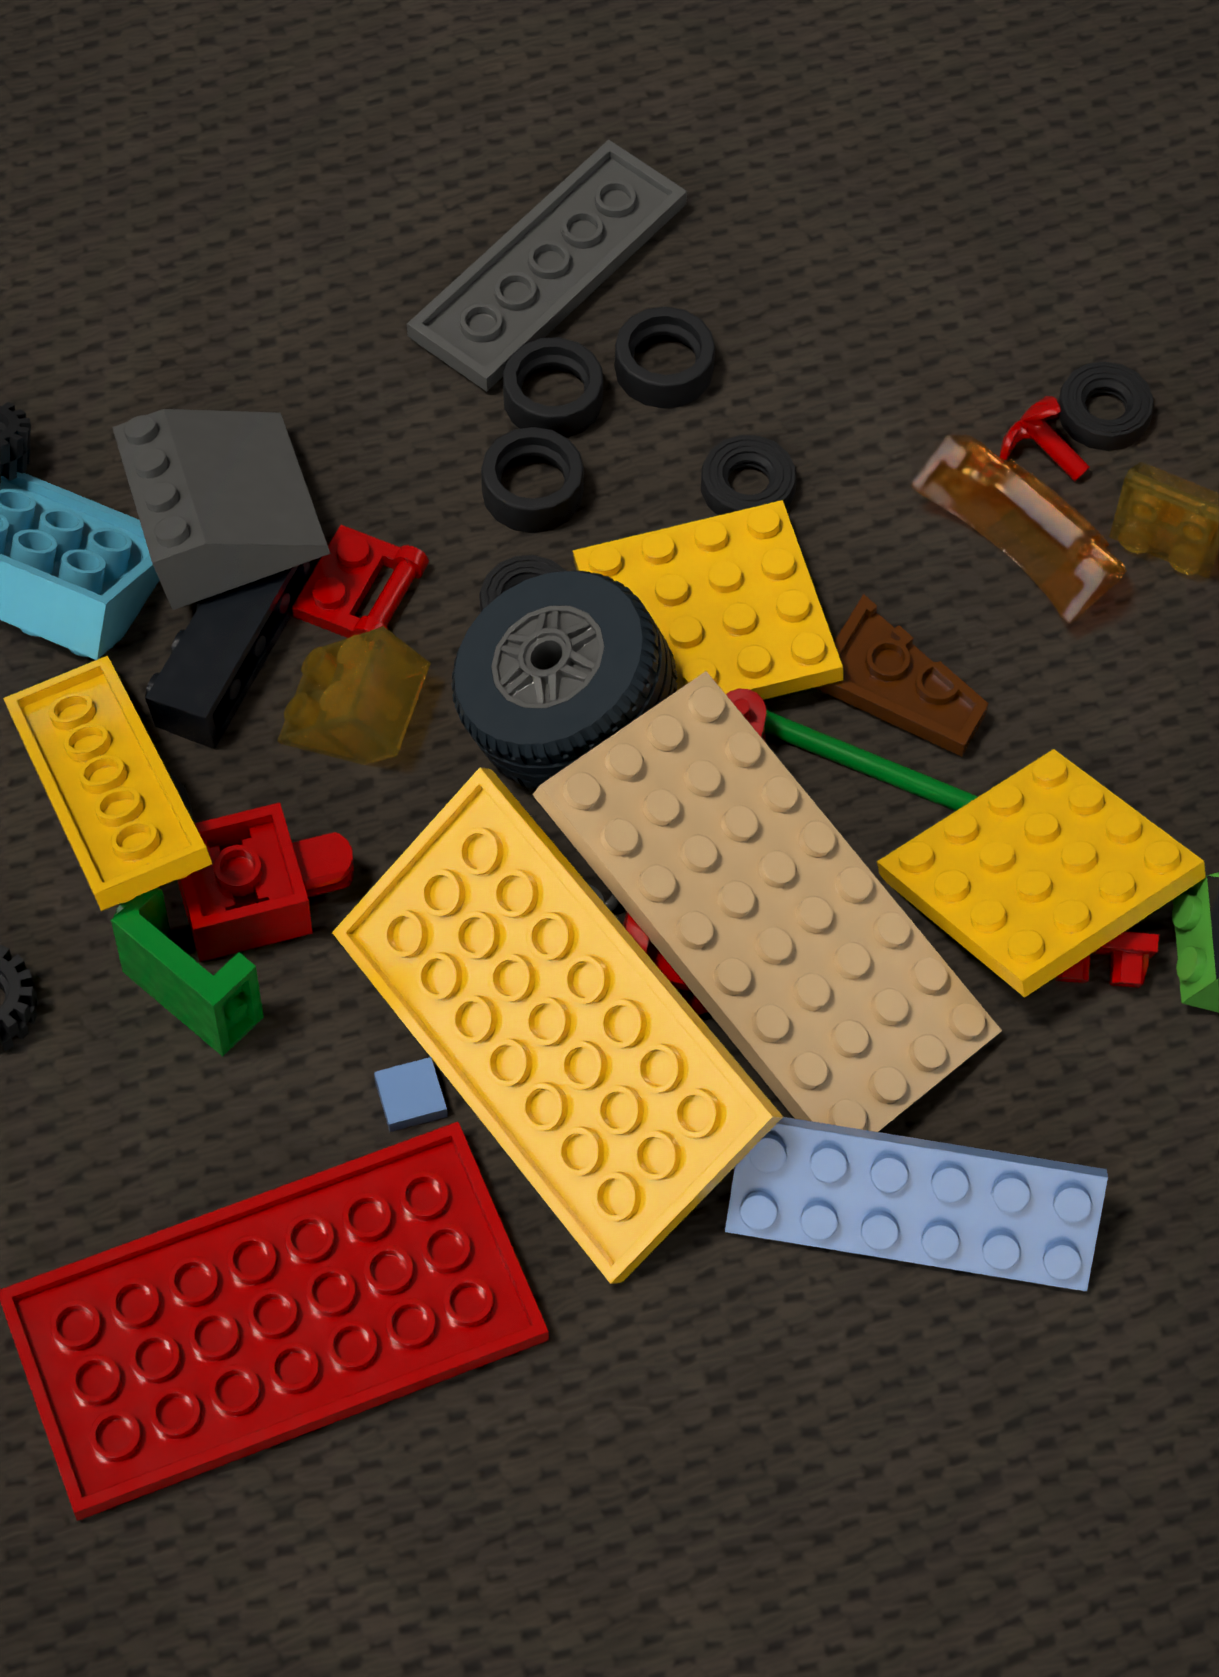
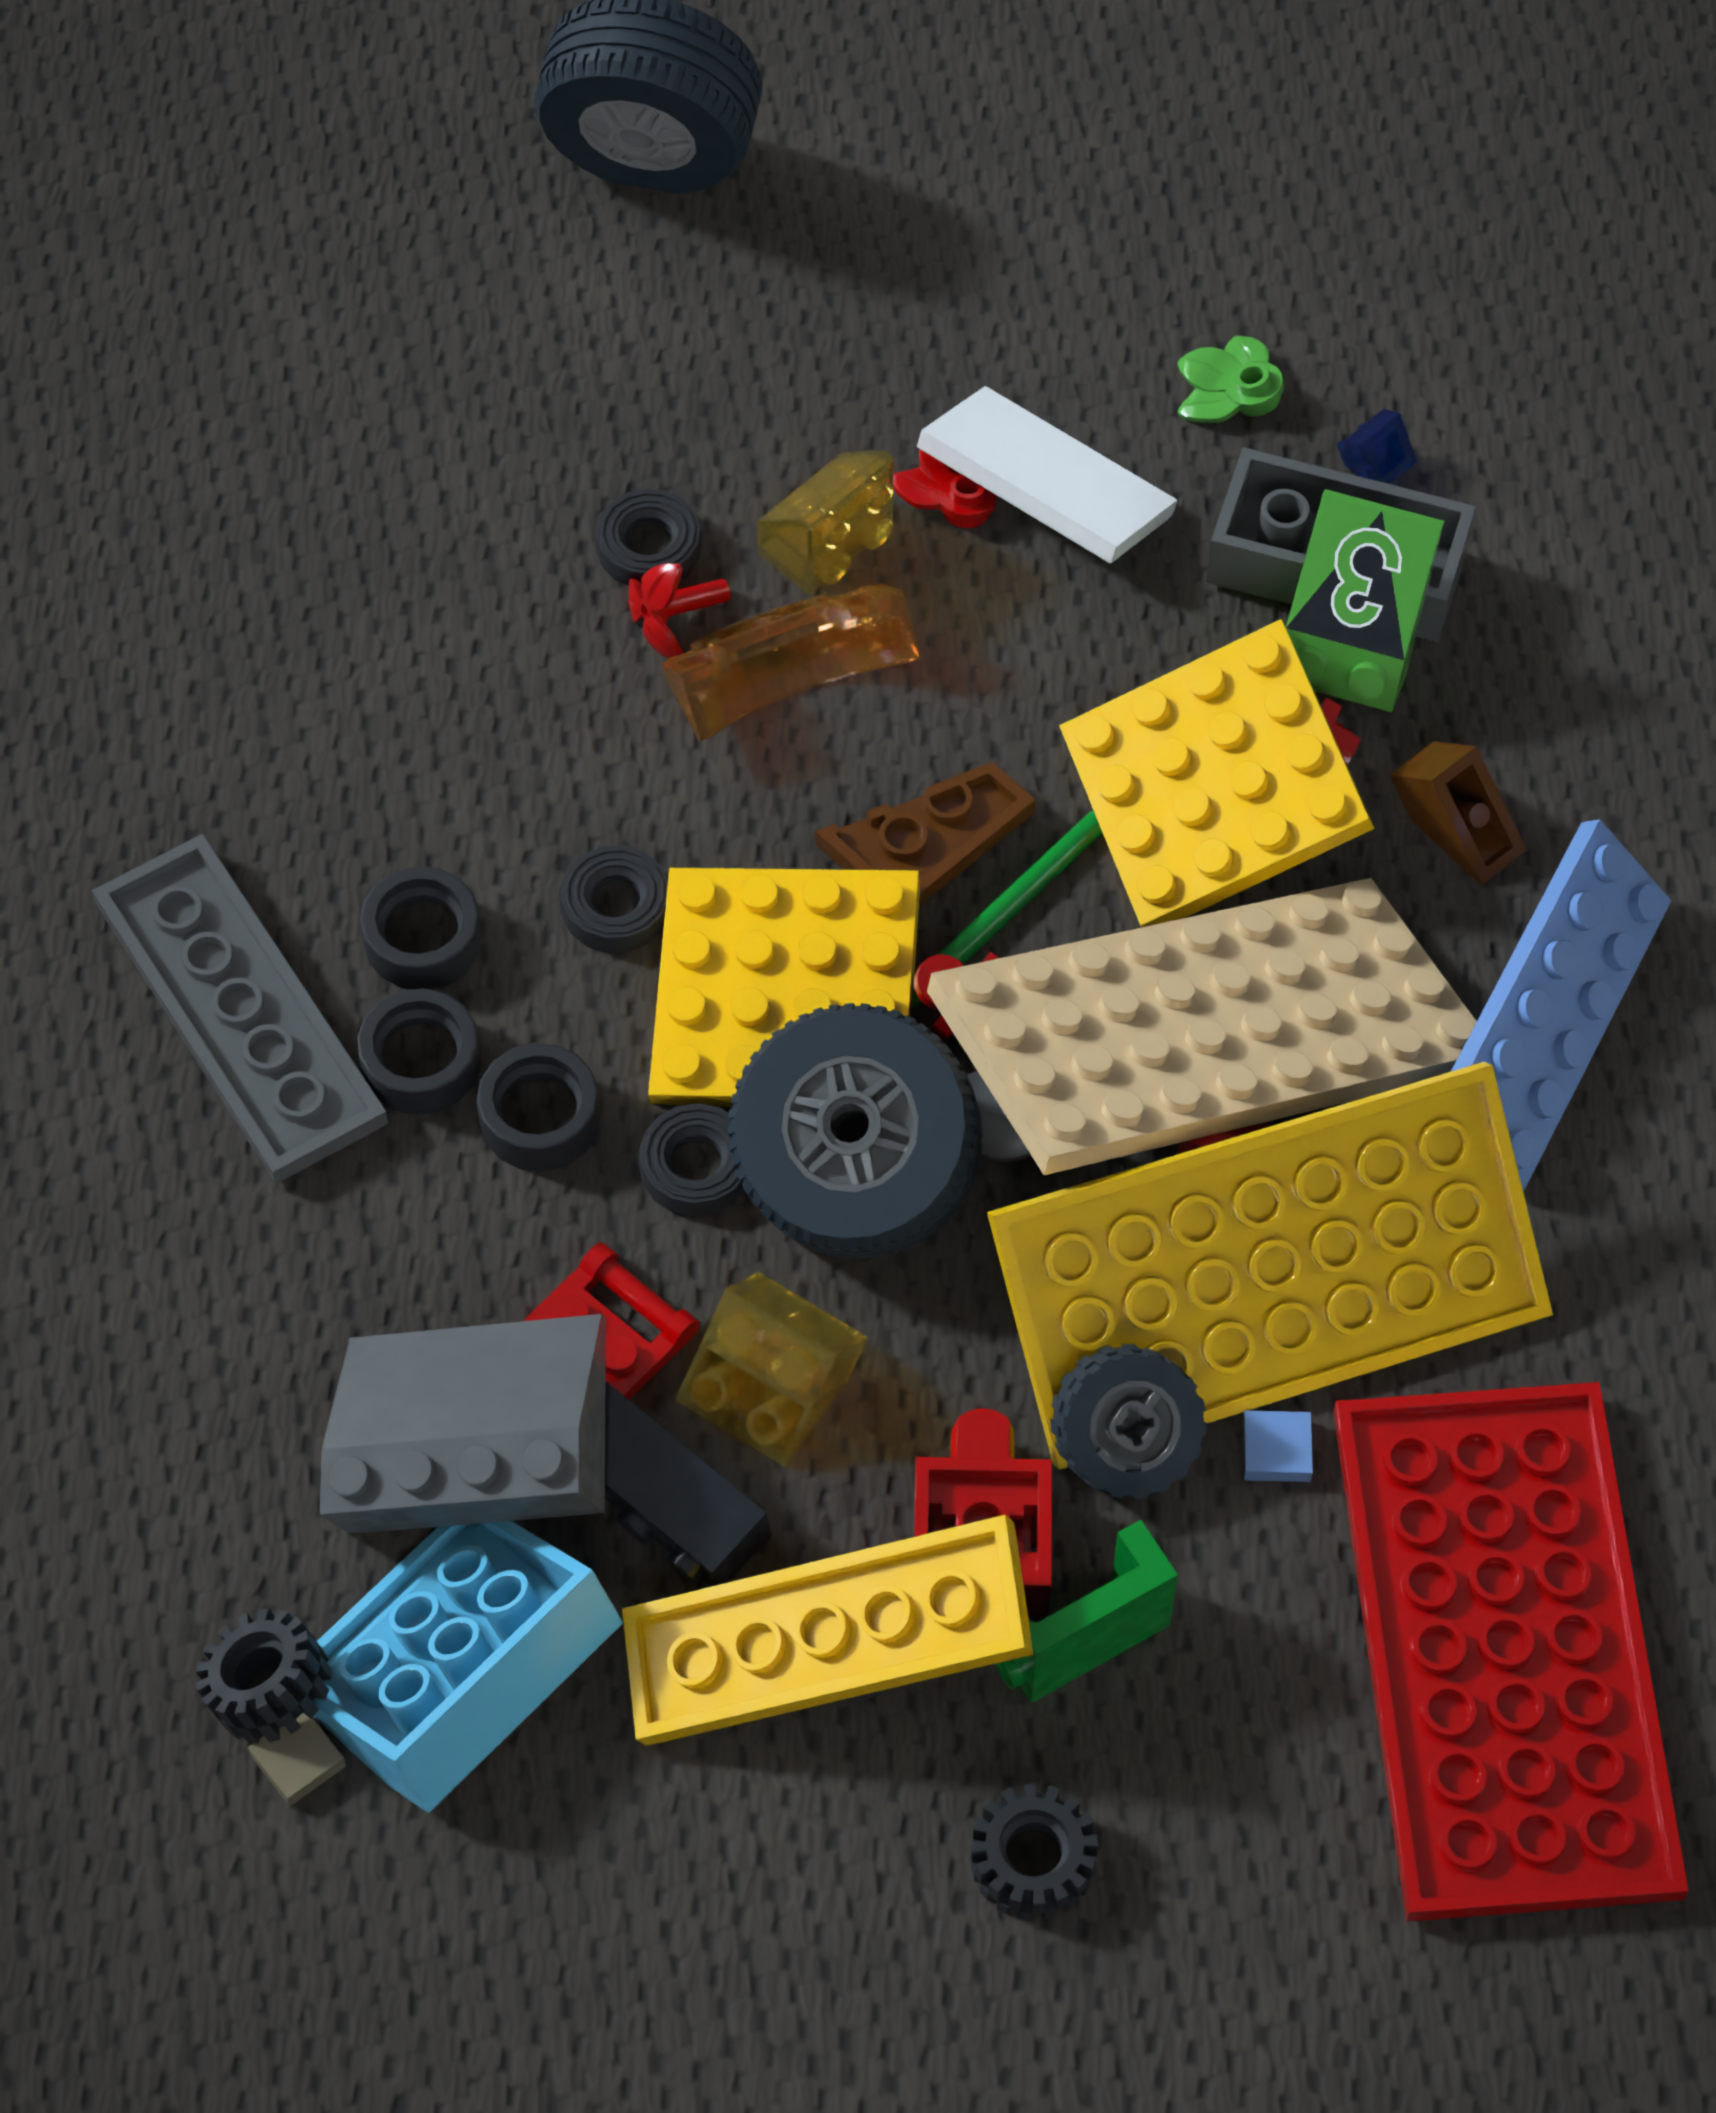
camera: 70 degrees left, 0 degrees up
(374, 958) = (1128, 1421): none -> black wheel
(1100, 1084) = (1459, 808): none -> reddish brown slope

